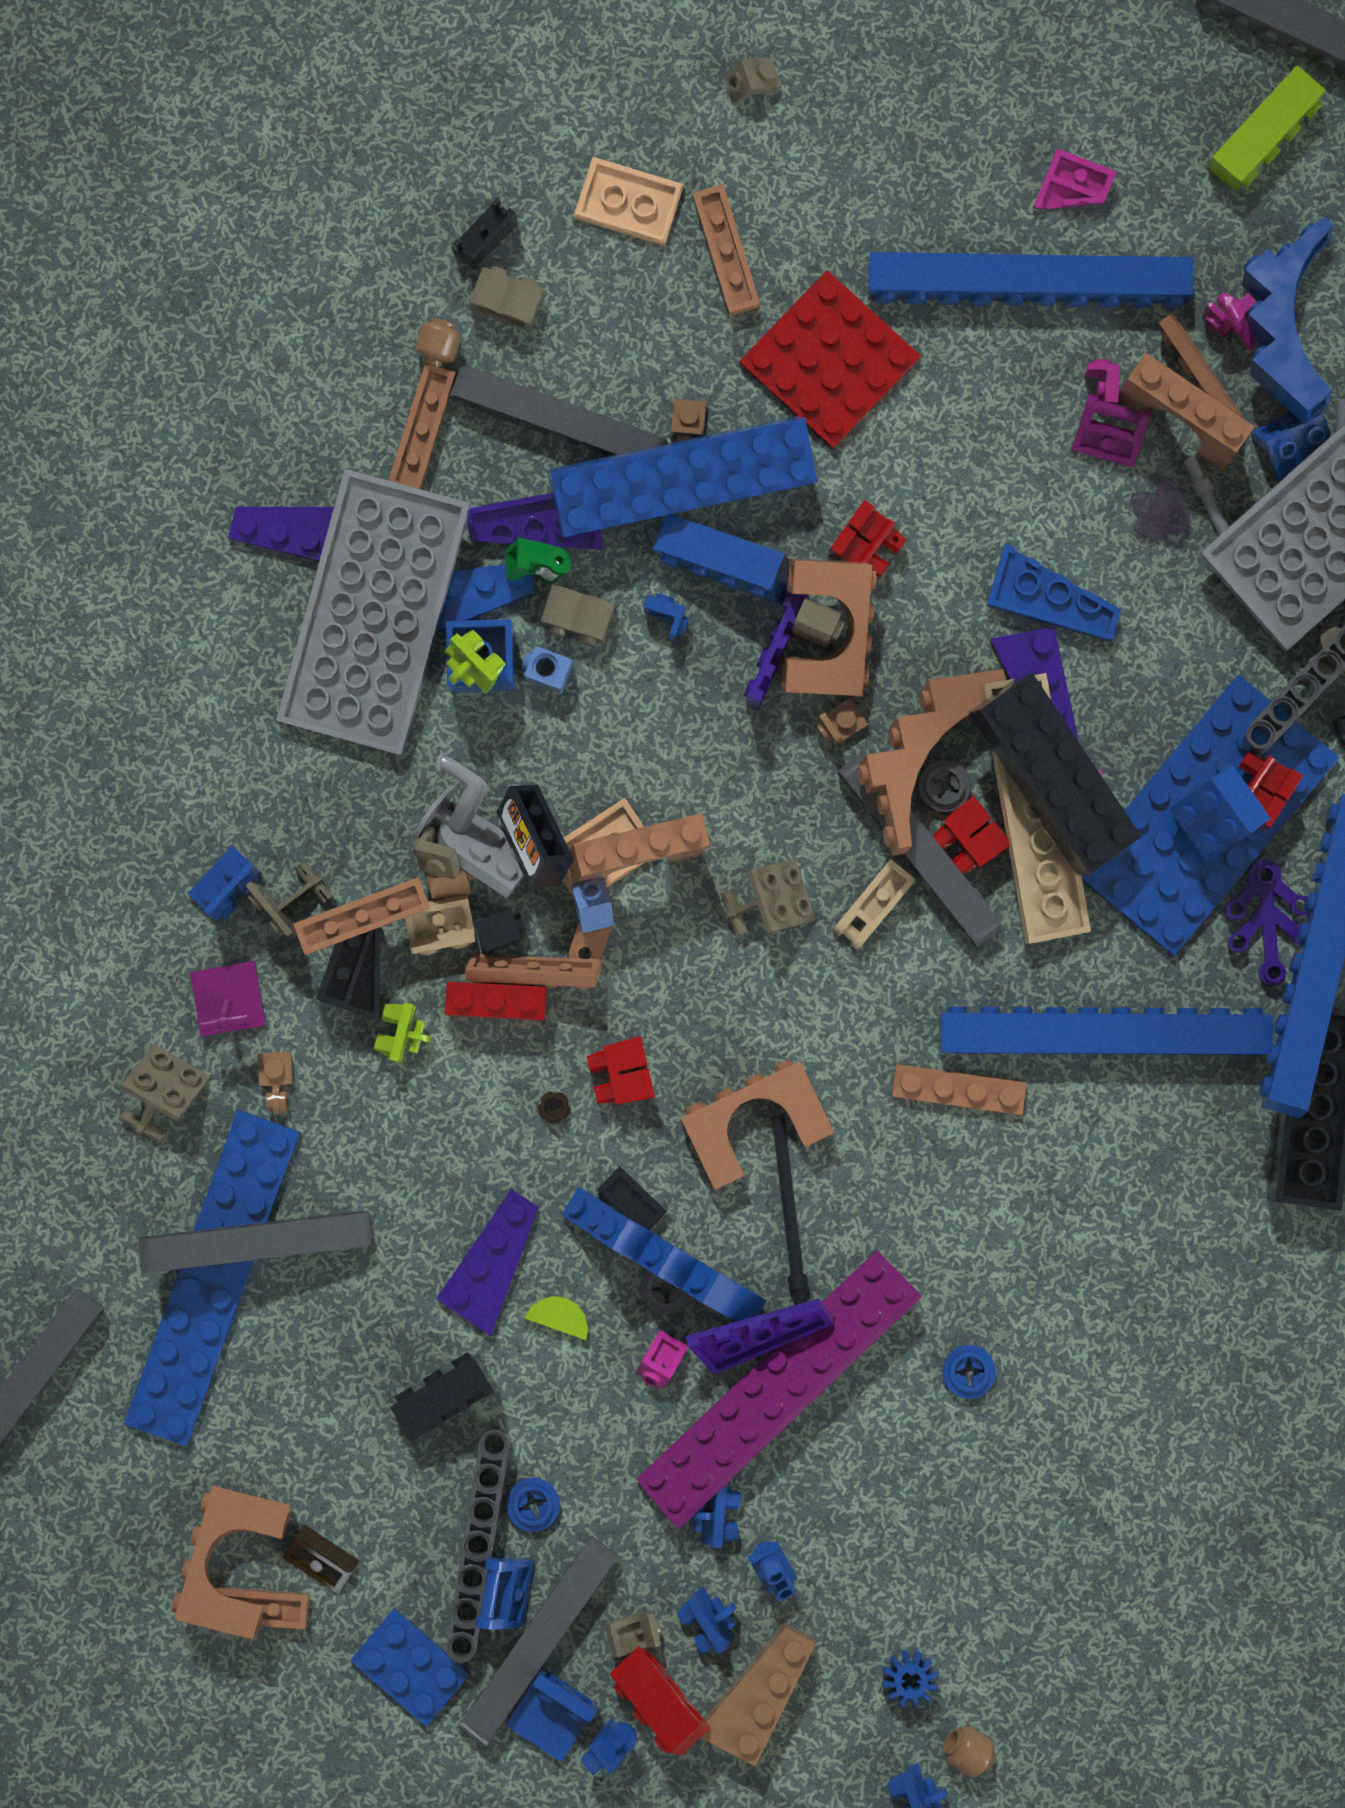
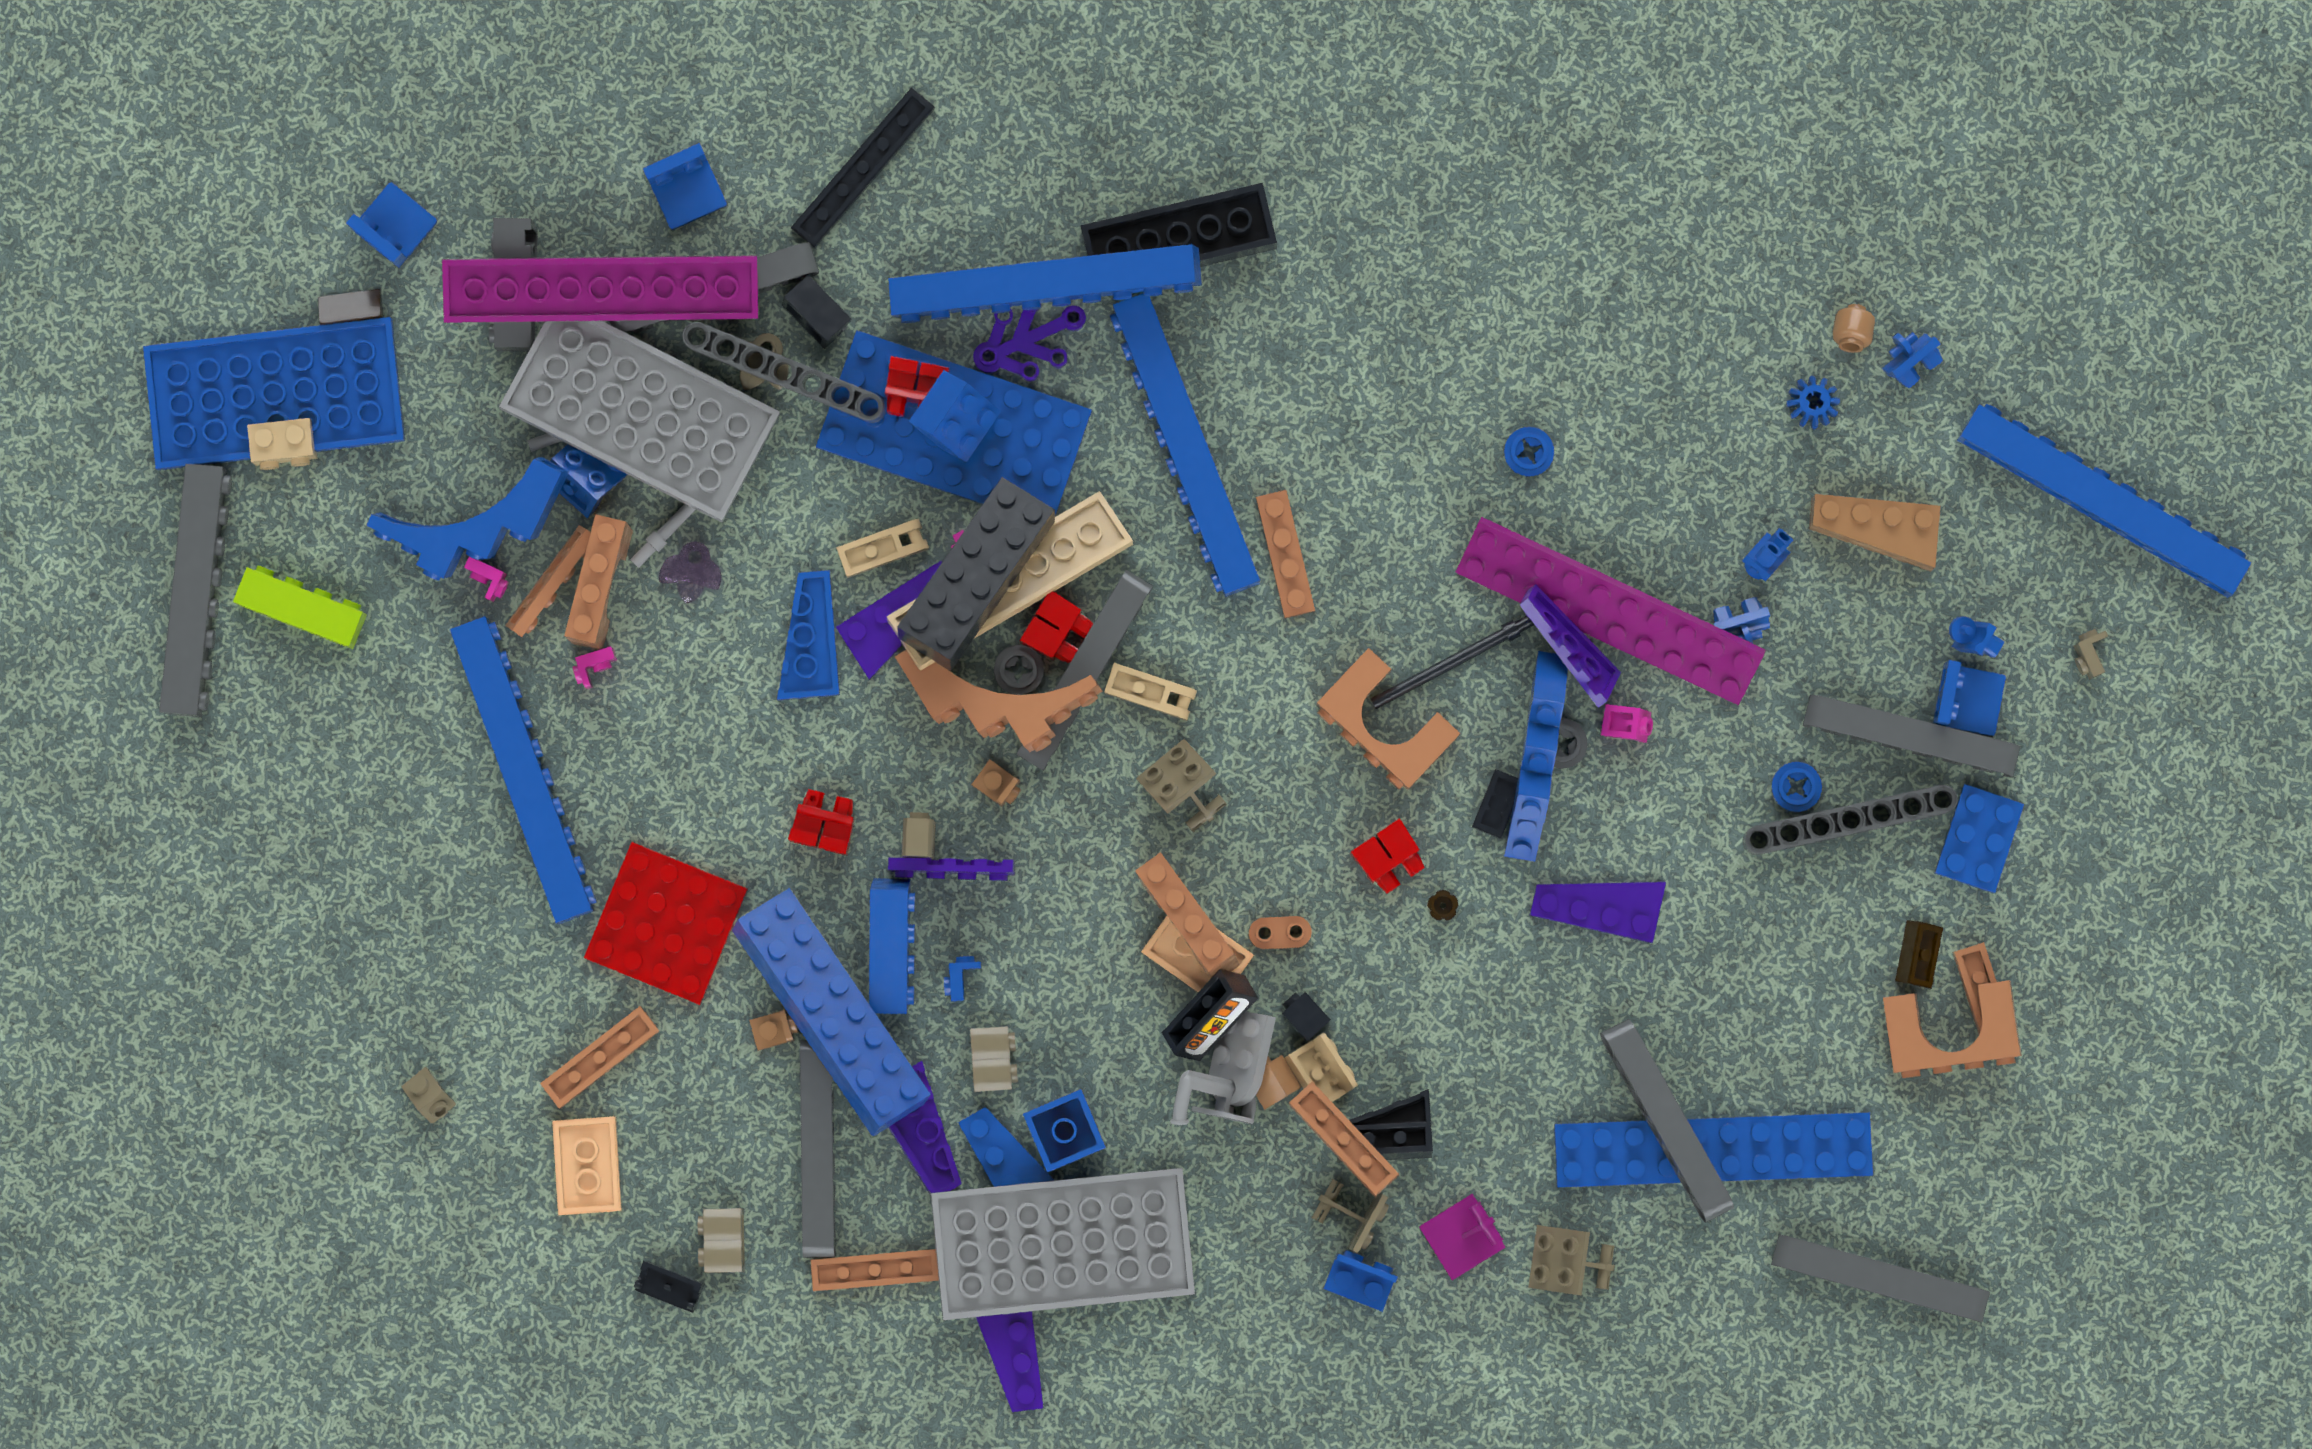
camera: 110 degrees left, 0 degrees up
(273, 1071) = (1509, 1167): medium nougat plate -> none
(403, 1017) = (1445, 1069): lime hips -> none
(435, 858) = (1265, 1094): dark tan bracket -> none
(438, 342) = (789, 1287): medium nougat head -> none
(443, 1395) = (1734, 901): black wedge -> none
(469, 665) = (1081, 1133): lime hips -> none
(496, 1001) = (1370, 993): red brick -> none
(513, 1593) = (1881, 779): blue plate -> none
(533, 970) = (1329, 970): nougat plate -> none
(536, 560) = (956, 1114): green leg -> none
(557, 680) = (1047, 1053): medium blue brick -> none
(560, 1315) = (1623, 828): lime tile -> none
(592, 904) = (1251, 939): medium blue brick -> none
(633, 1631) = (1871, 655): dark tan bracket -> none
(658, 1702) = (1920, 610): red brick -> none
(713, 1619) = (1830, 591): blue hips -> none
(844, 669) = (949, 799): nougat arch -> none
(1073, 183) = (416, 764): dark pink wing -> none
(1107, 440) = (646, 642): magenta plate -> none
(1114, 699) = (881, 548): none -> tan plate
(1237, 321) = (495, 566): dark pink piece -> none

